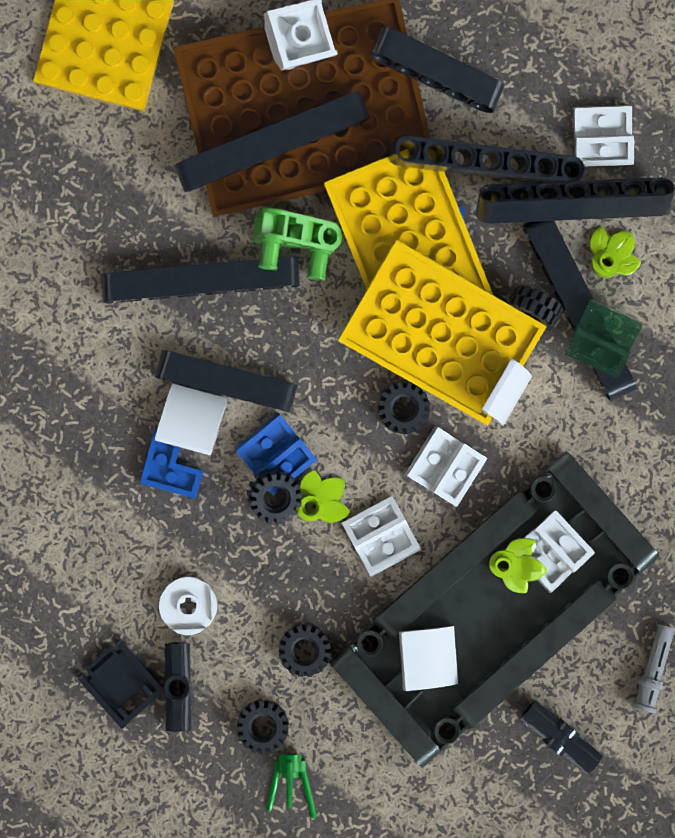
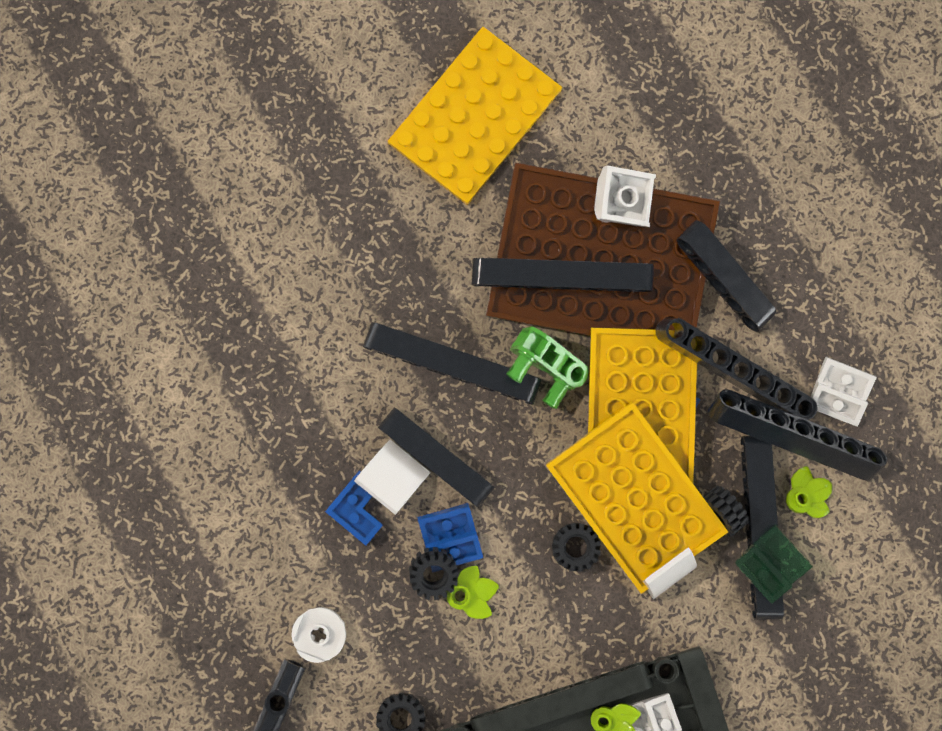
camera: 20 degrees right, 5 degrees down
(117, 679) = (231, 671): black container -> none
(381, 536) = (509, 648): white slope -> none
(445, 466) = (590, 612): white slope -> none

